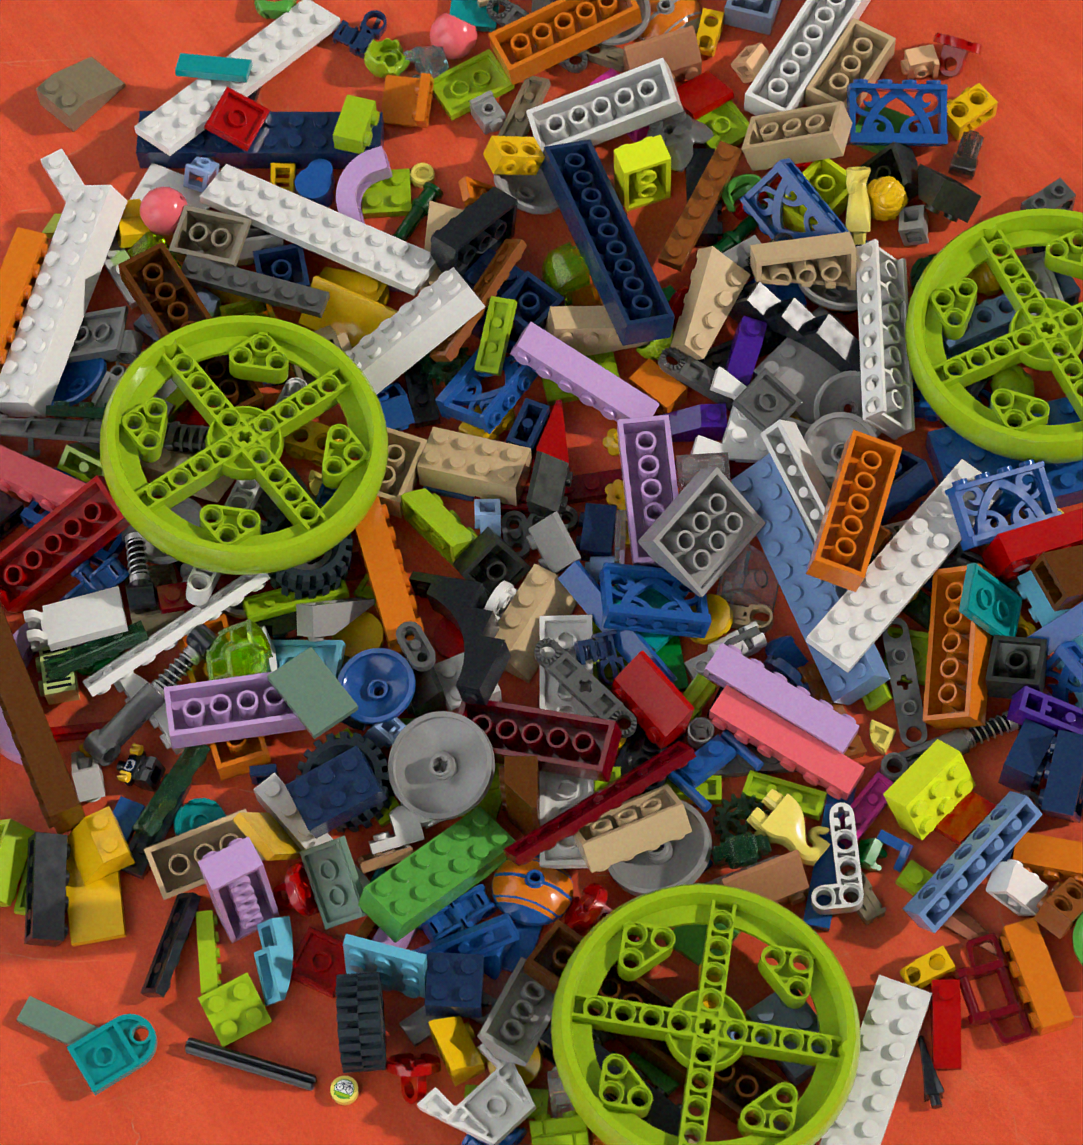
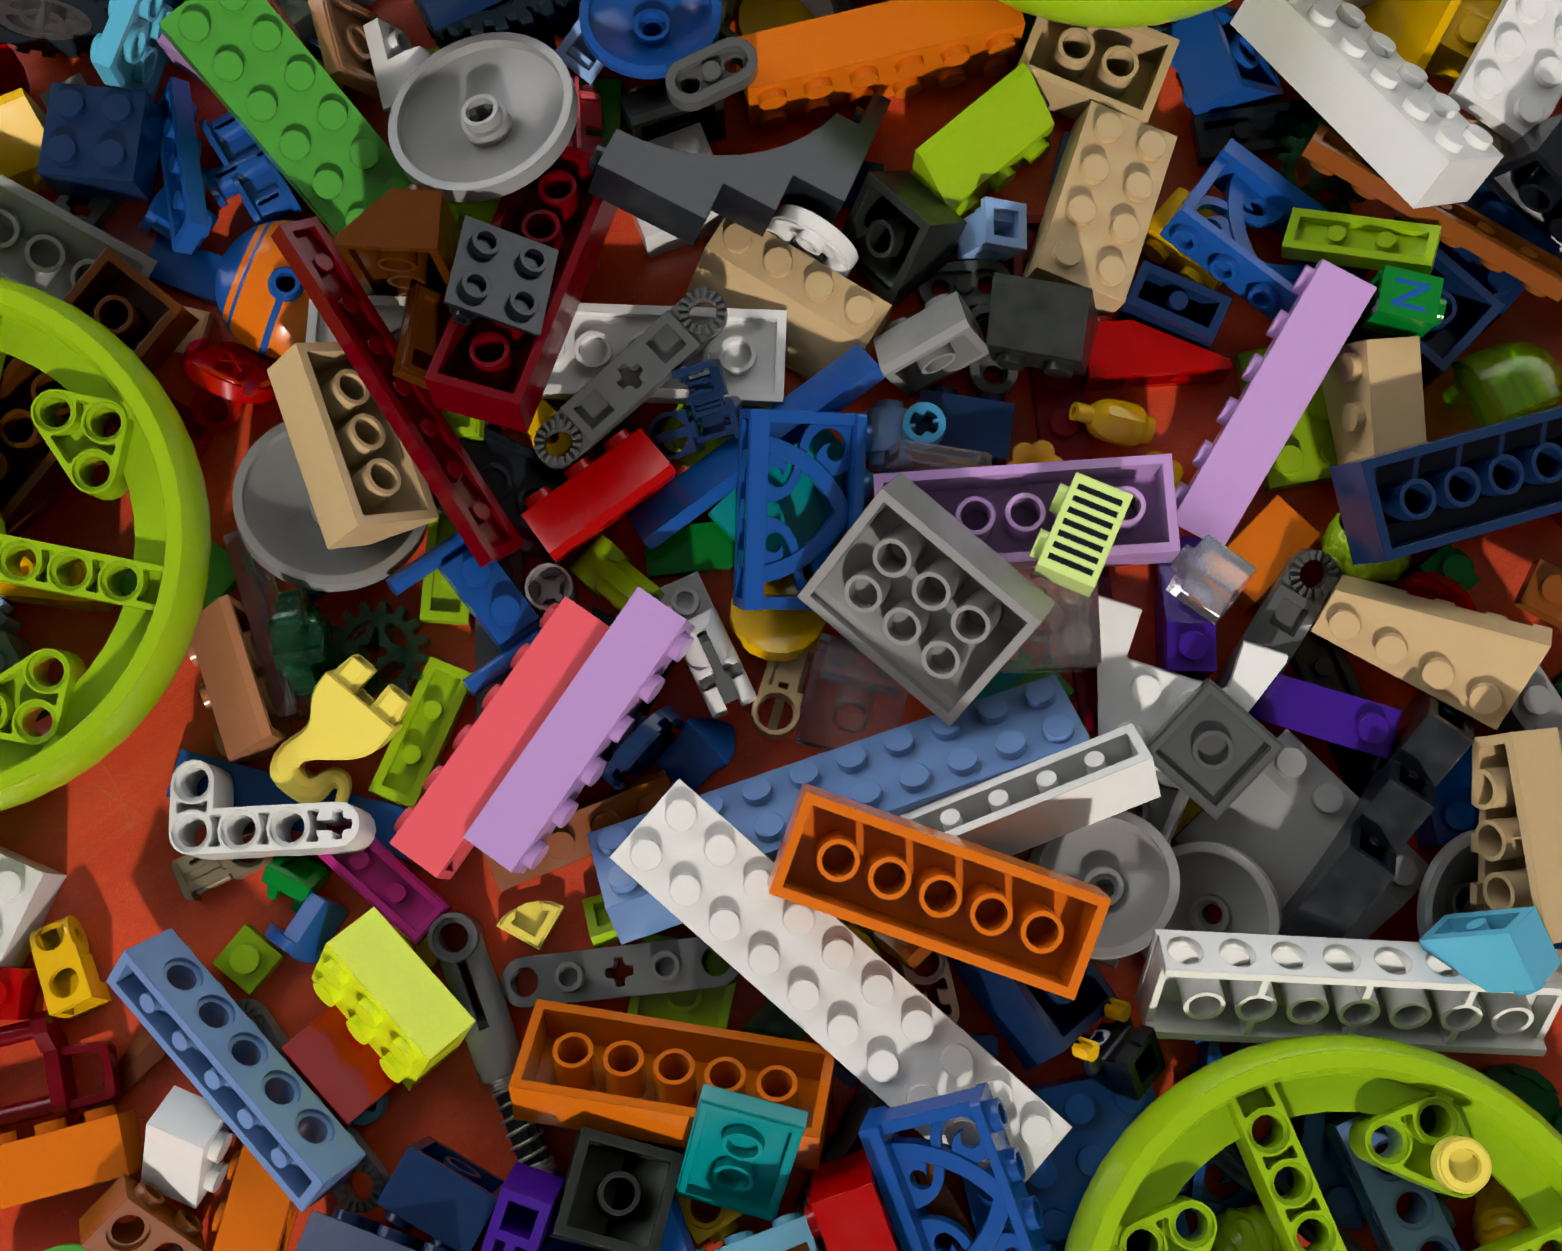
camera: 90 degrees right, 15 degrees up
(532, 309) = (1404, 303): none -> green brick
(544, 737) = (499, 278): none -> black hinge
(568, 791) = (420, 333): none -> reddish brown tile
(590, 457) = (1115, 421): none -> yellow plant
(605, 552) = (918, 412): none -> dark azure bush
(665, 456) = (1082, 533): none -> yellowish green brick
(679, 405) = (1209, 577): none -> clear brick
(859, 273) = (1495, 948): none -> medium azure slope
(924, 440) = (1119, 1054): none -> black piece
(962, 285) = (1460, 1164): none -> light yellow tile

